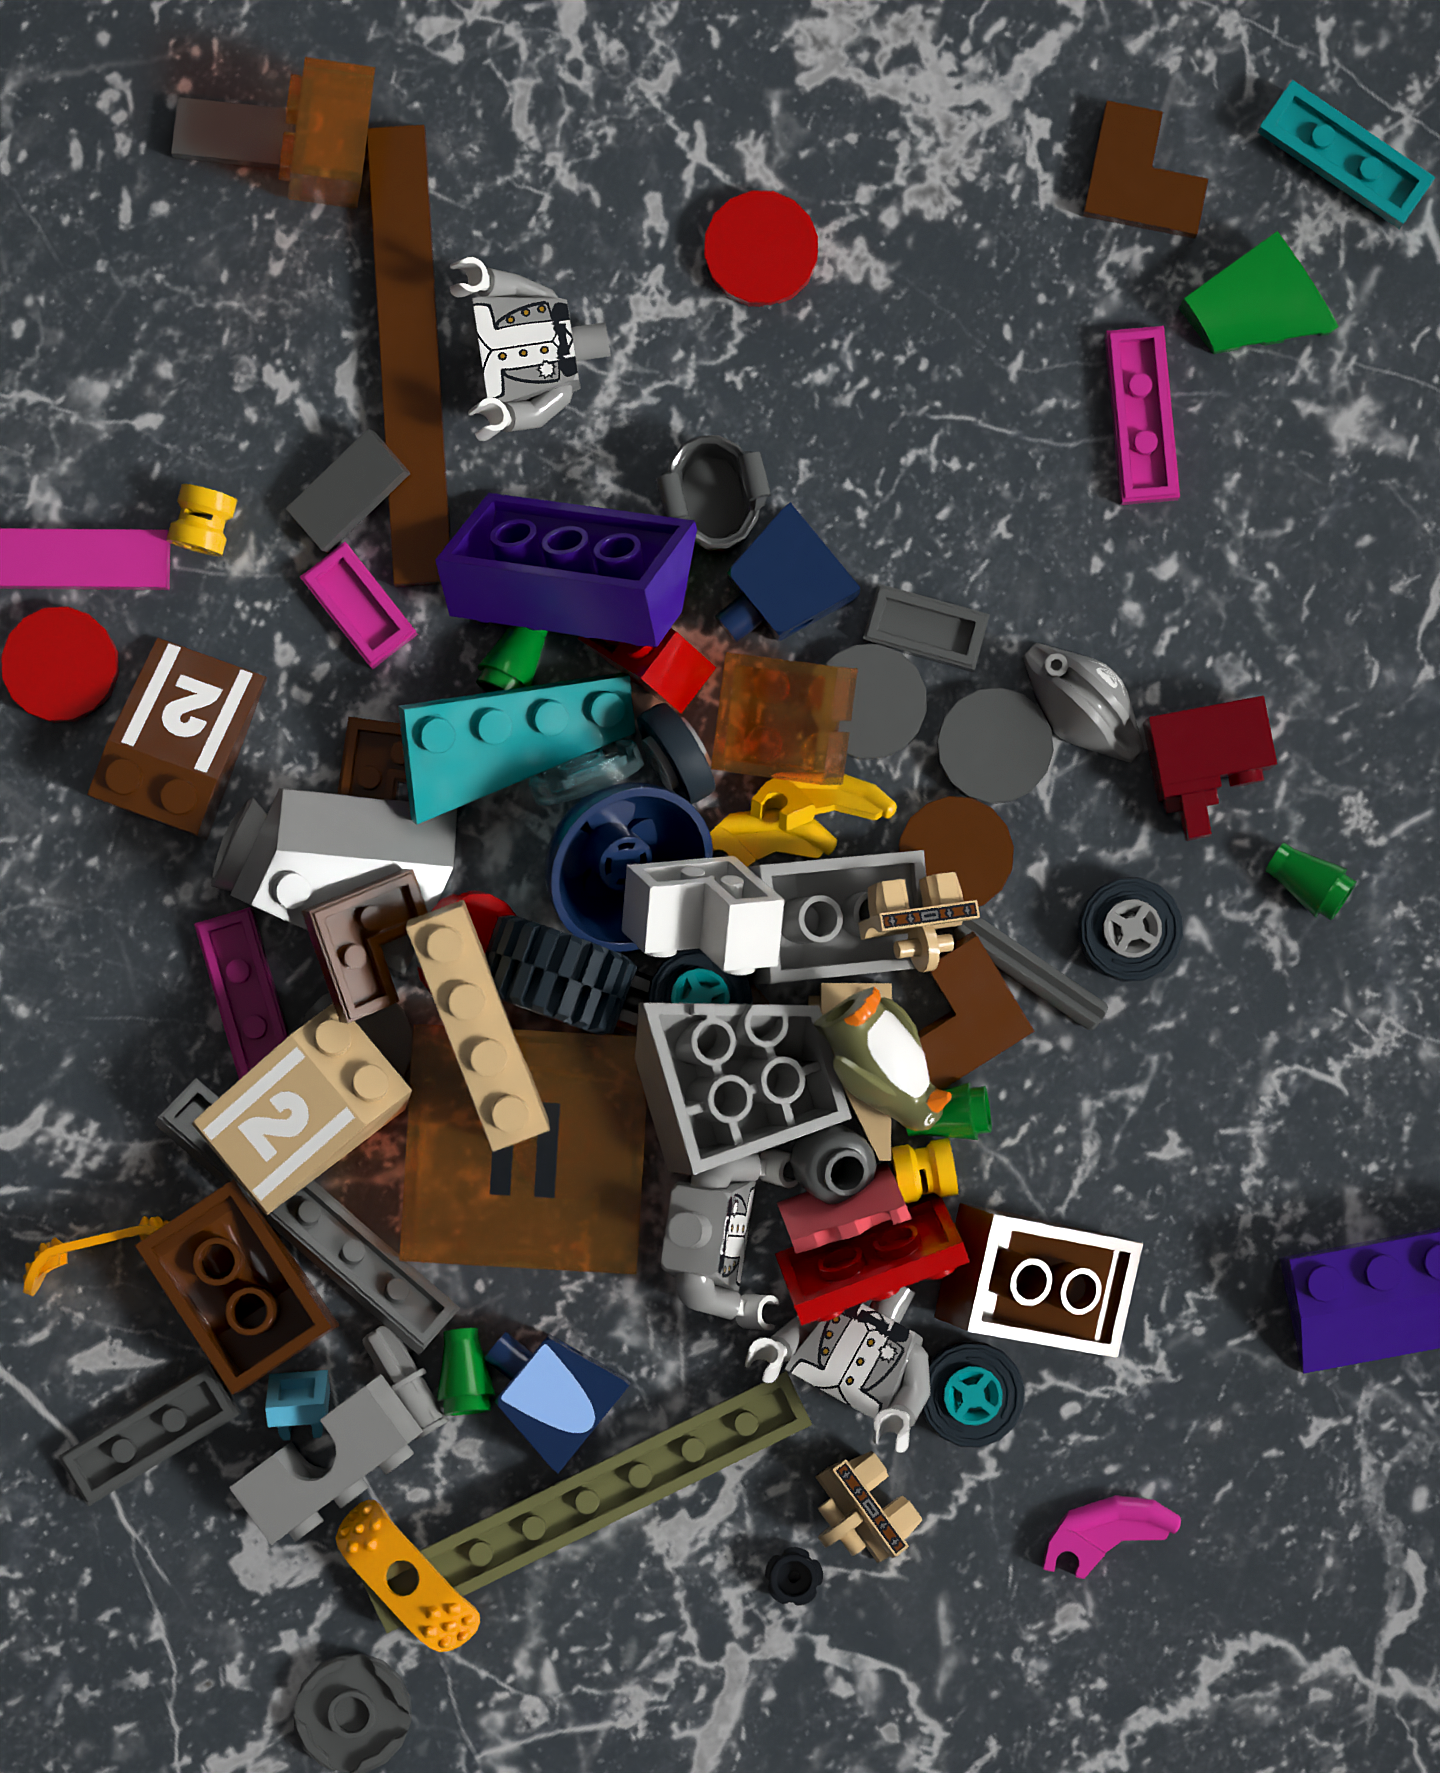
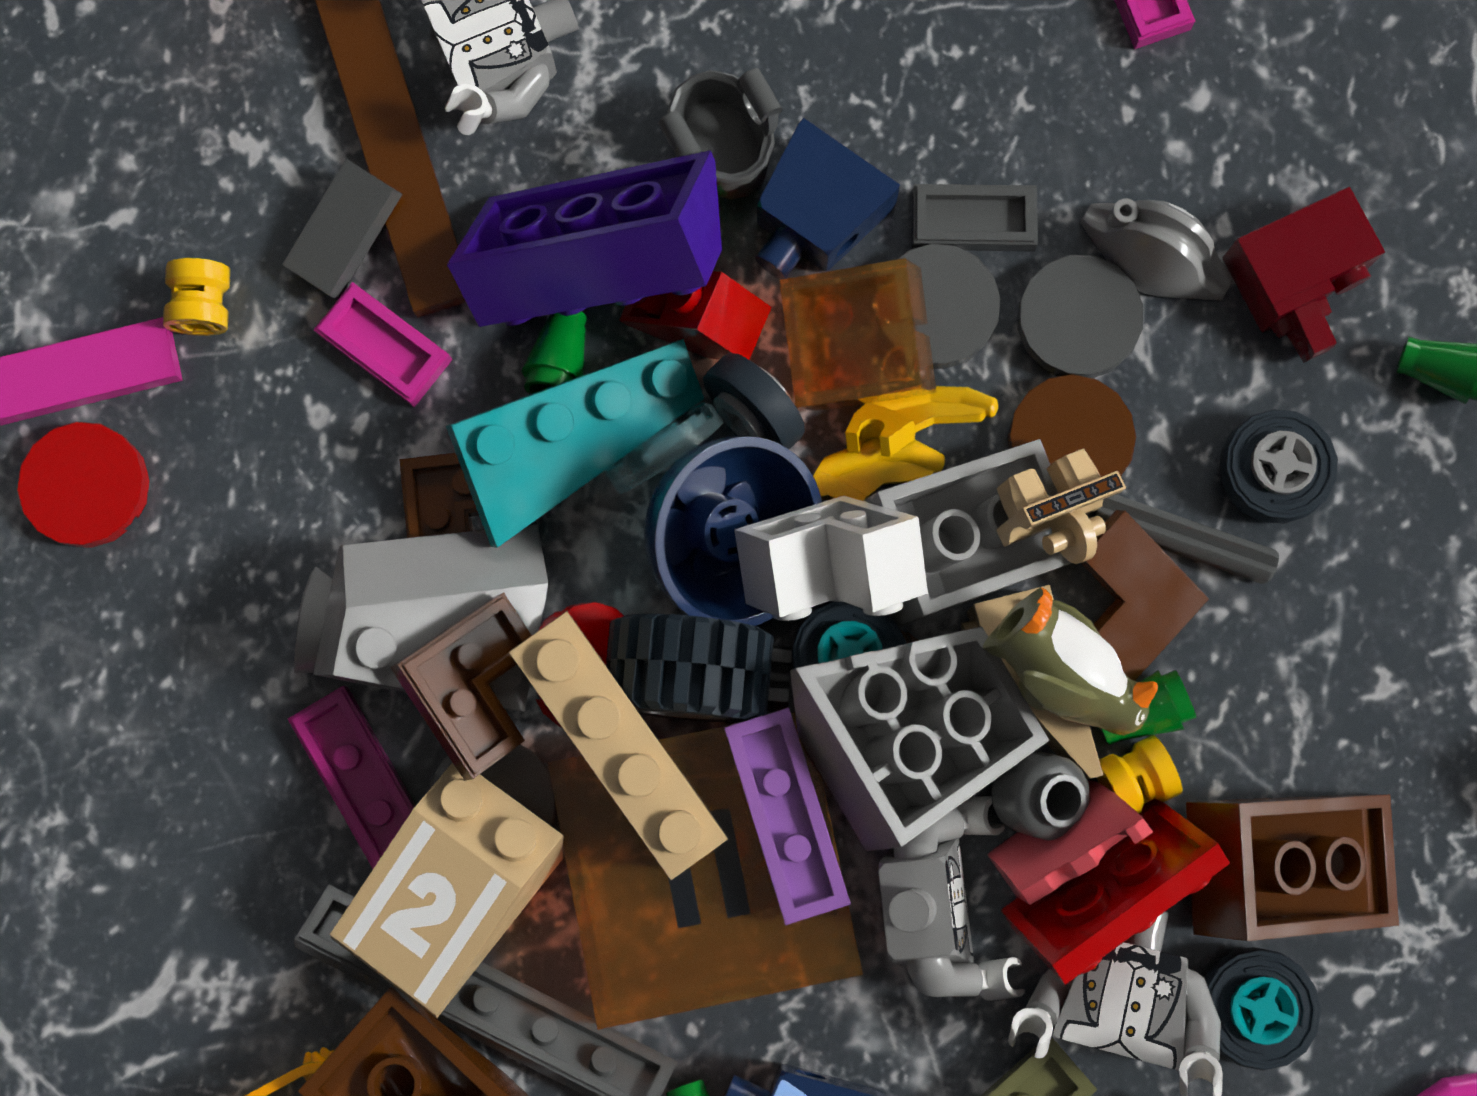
camera: 15 degrees left, 5 degrees down
(178, 738) = (223, 531): reddish brown slope -> none
(606, 1123) = (787, 816): none -> medium lavender plate

